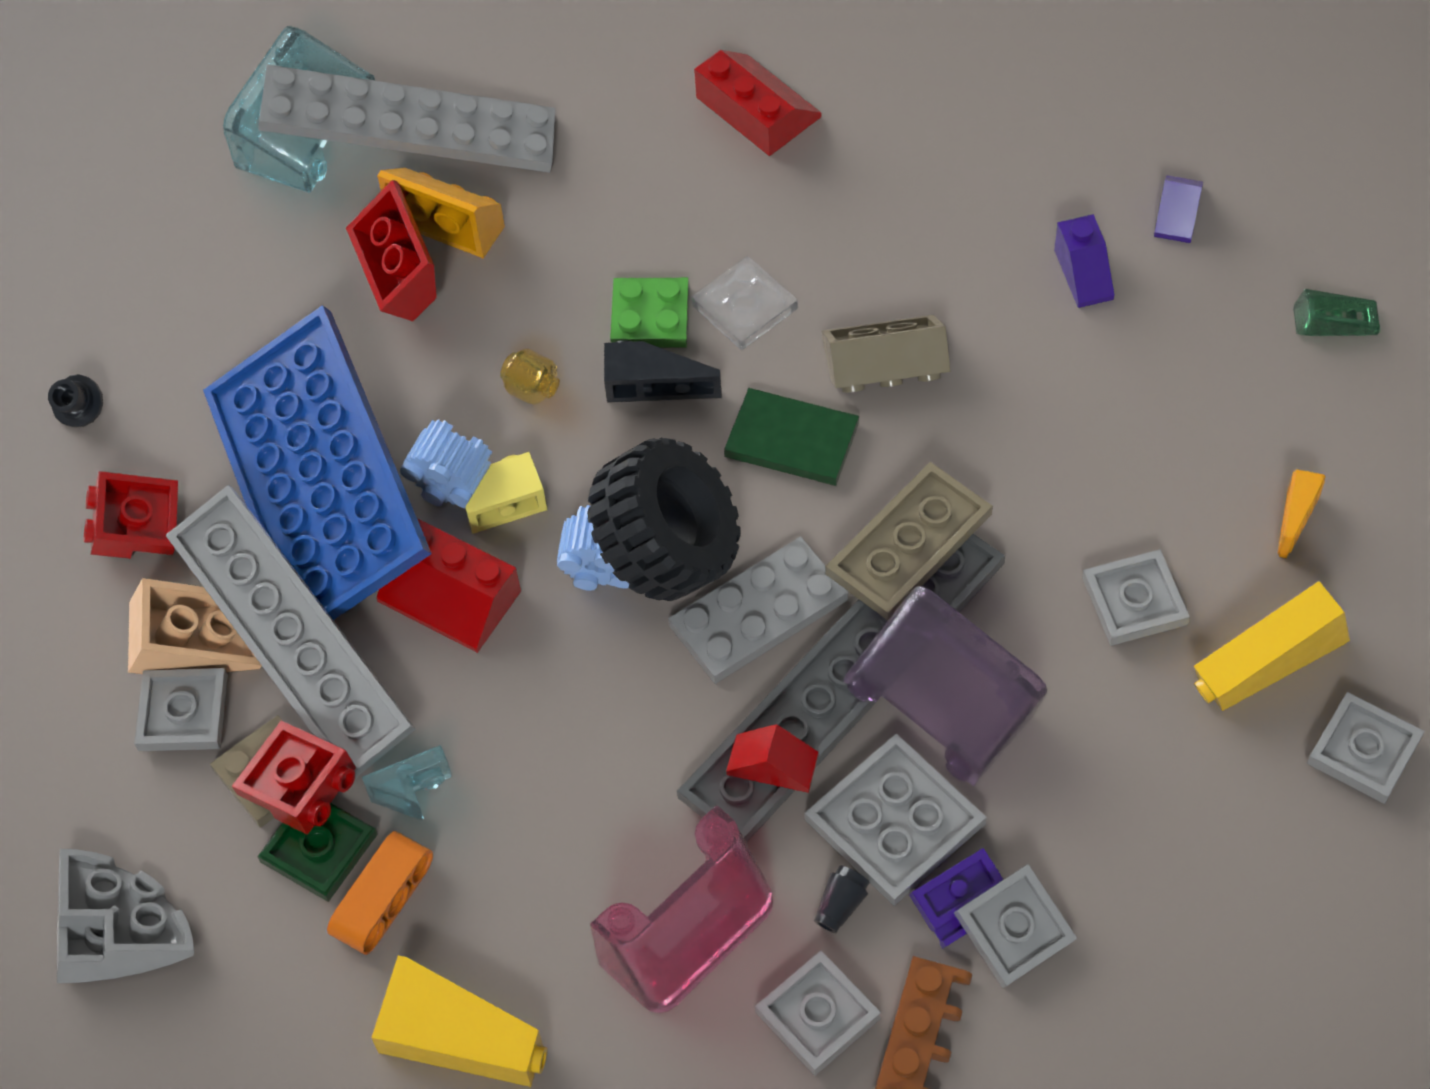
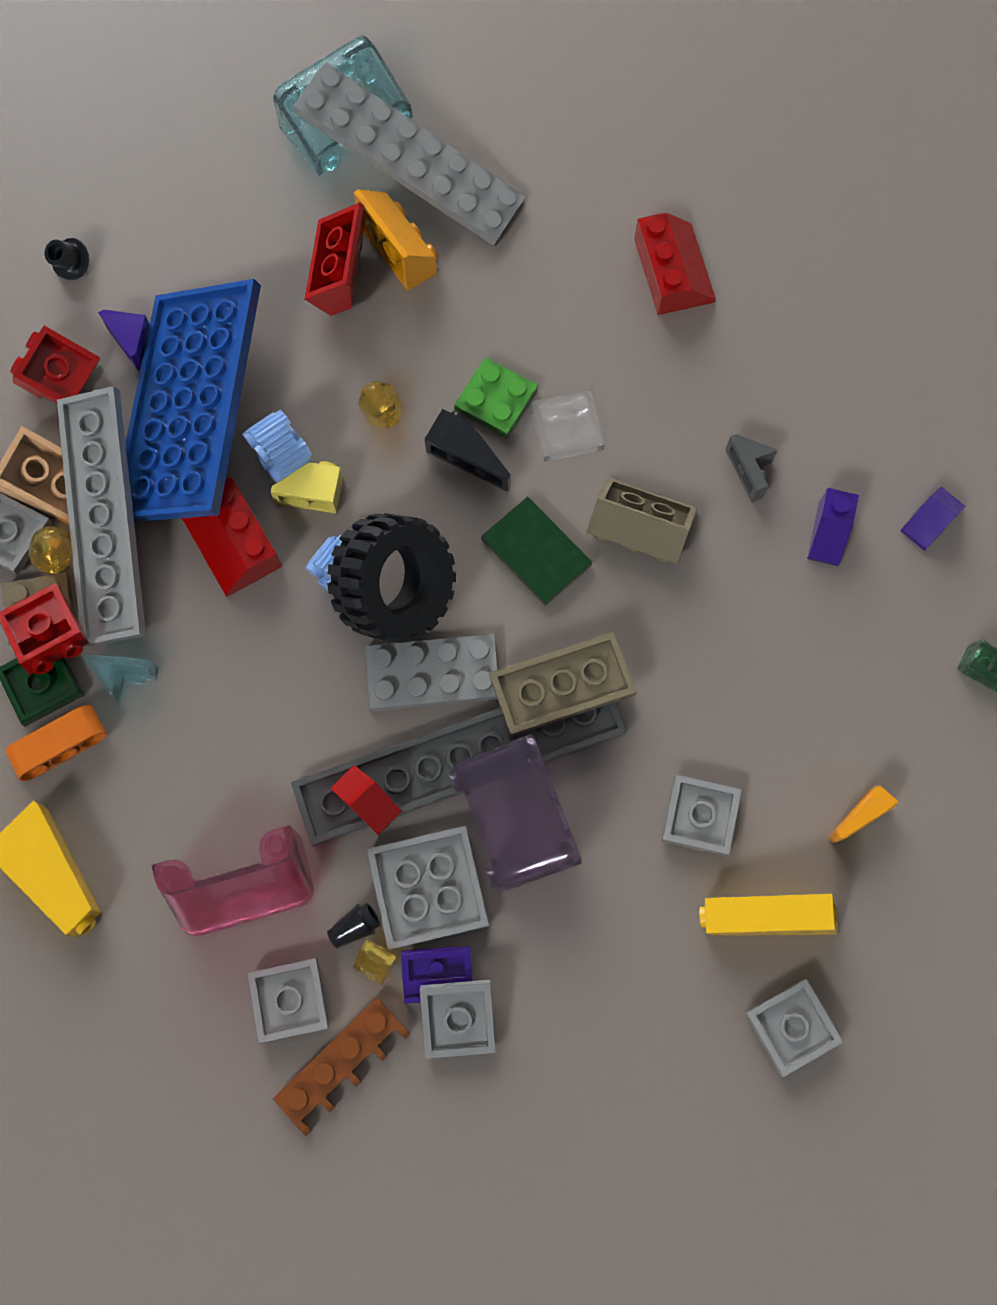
camera: 25 degrees right, 15 degrees up
(193, 441) = (129, 331): none -> dark purple slope
(249, 696) = (50, 550): none -> clear yellow head
(887, 920) = (374, 962): none -> clear yellow plate
(959, 244) = (747, 459): none -> dark grey slope

